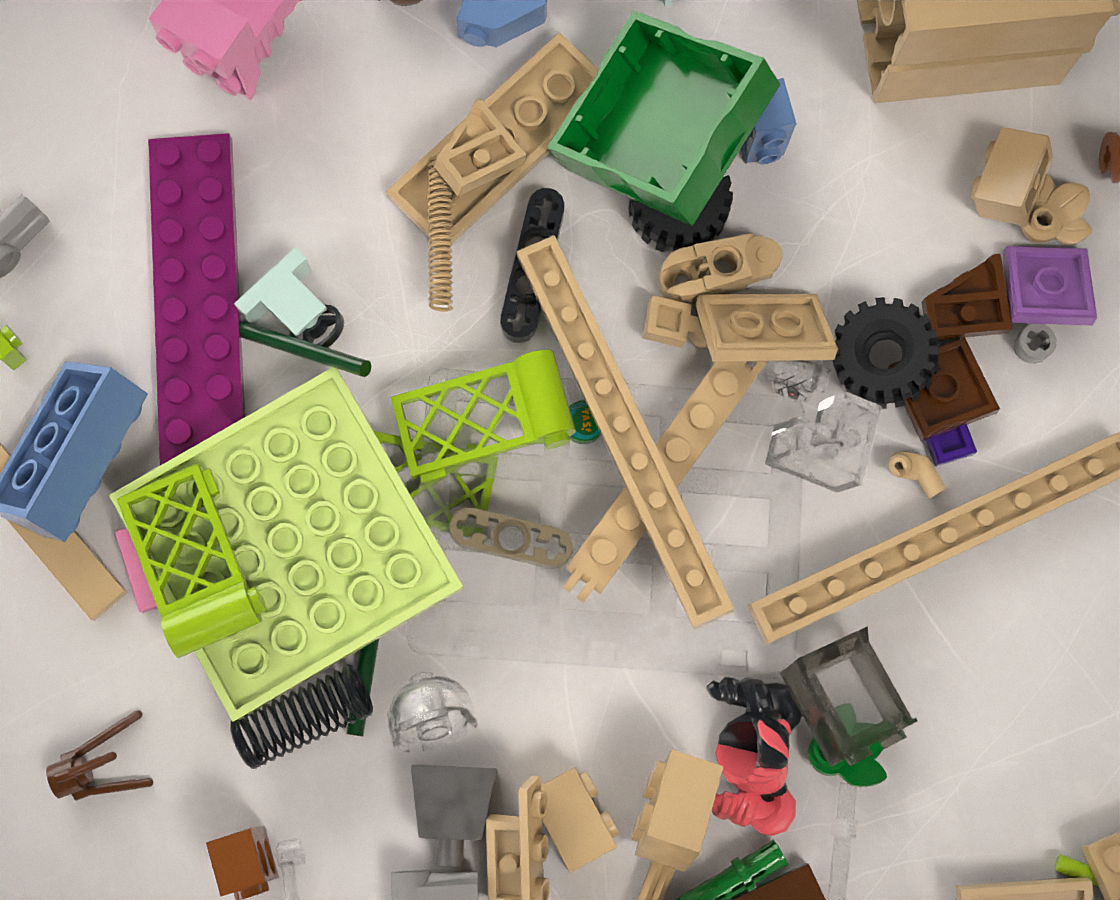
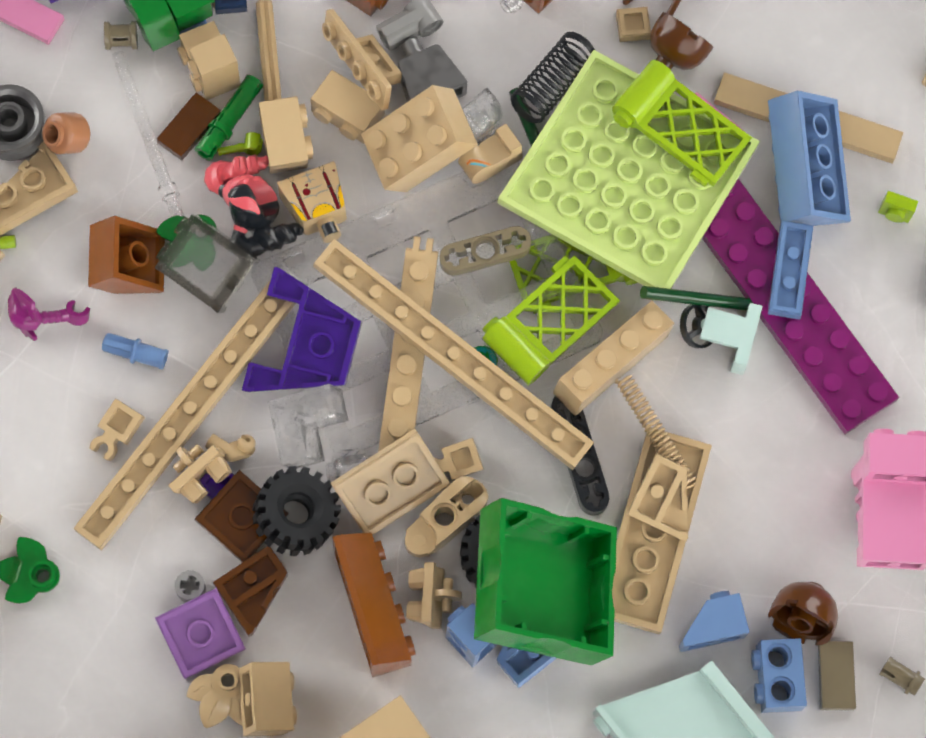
camera: 150 degrees right, 5 degrees down
(123, 679) = (677, 44): none -> reddish brown cylinder
(158, 745) = (633, 24): none -> tan tile
(173, 332) = (790, 270): none -> medium blue tile
(438, 335) = (613, 358): none -> tan brick
(439, 649) = (492, 155): none -> tan leg
(515, 712) = (419, 139): none -> tan brick
(675, 712) = (315, 201): none -> tan torso
(716, 834) = (251, 146): none -> lime hand
(762, 530) = (319, 344): none -> dark purple wing
(778, 187) = (436, 598): none -> tan hips
(852, 213) = (372, 602): none -> dark orange slope
(940, 765) = (124, 257): none -> dark orange slope
(976, 461) = (188, 481): none -> tan hips
(976, 644) = (135, 350): none -> medium blue axle
(1038, 561) = (119, 425): none -> tan plate
(1090, 744) = (28, 318): none -> magenta piece

